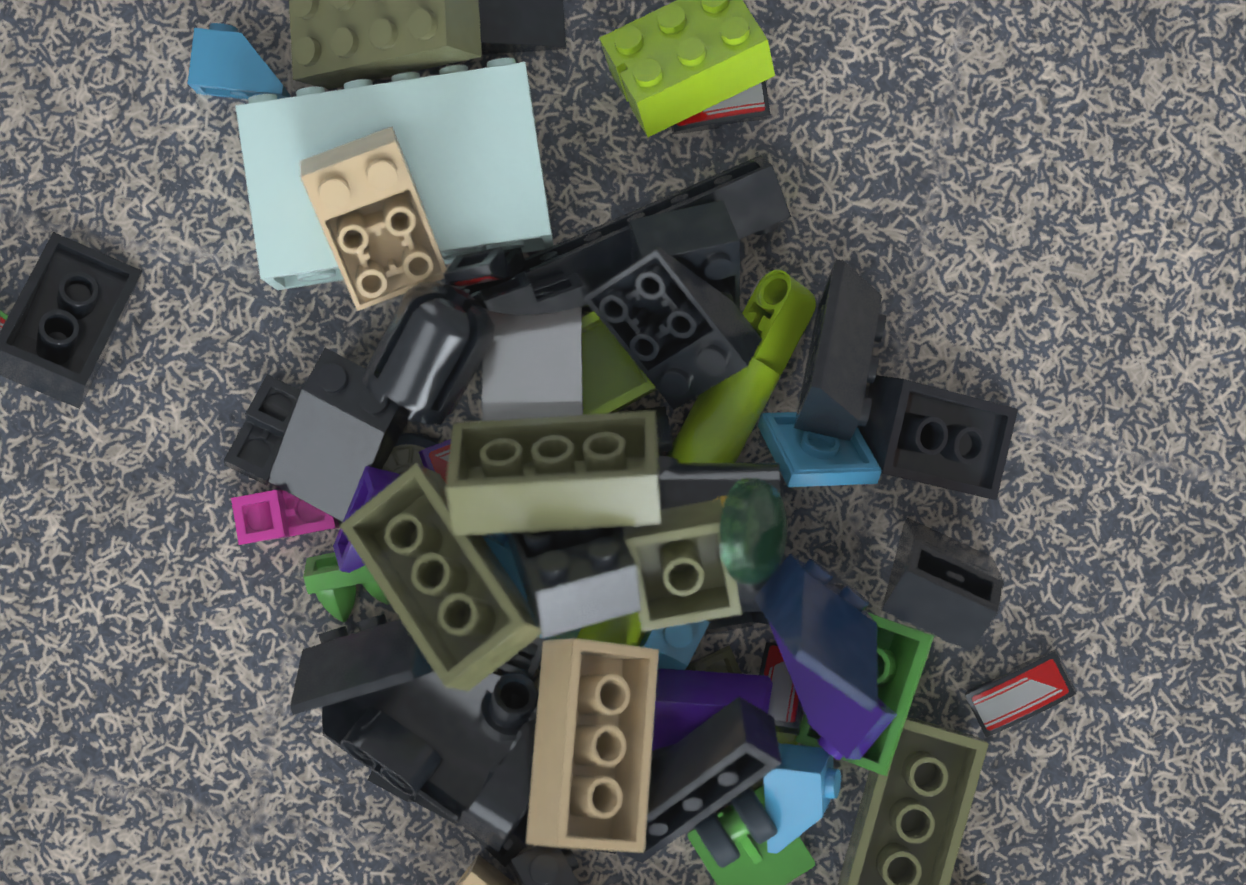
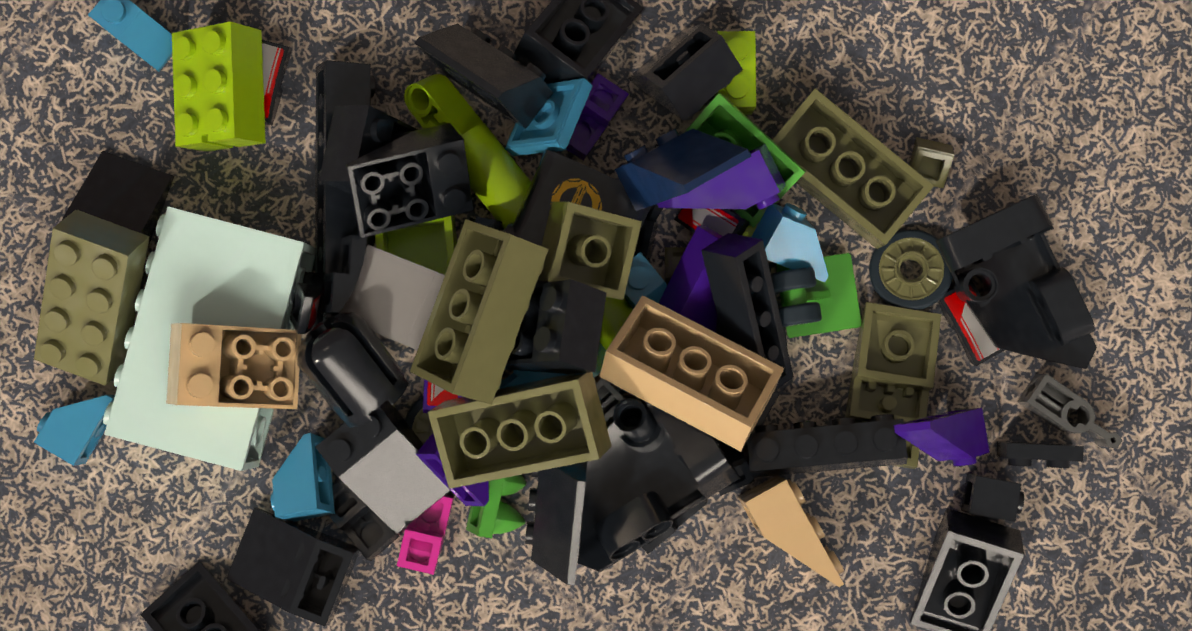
camera: 65 degrees left, 0 degrees up
(180, 380) = (293, 566): none -> black slope
(279, 351) = (303, 483): none -> dark azure slope
(752, 531) = (585, 186): clear green piece -> none
(852, 502) = (599, 110): none -> dark purple slope
(950, 660) = (743, 86): none -> lime brick
(1020, 693) = (790, 51): slope -> none

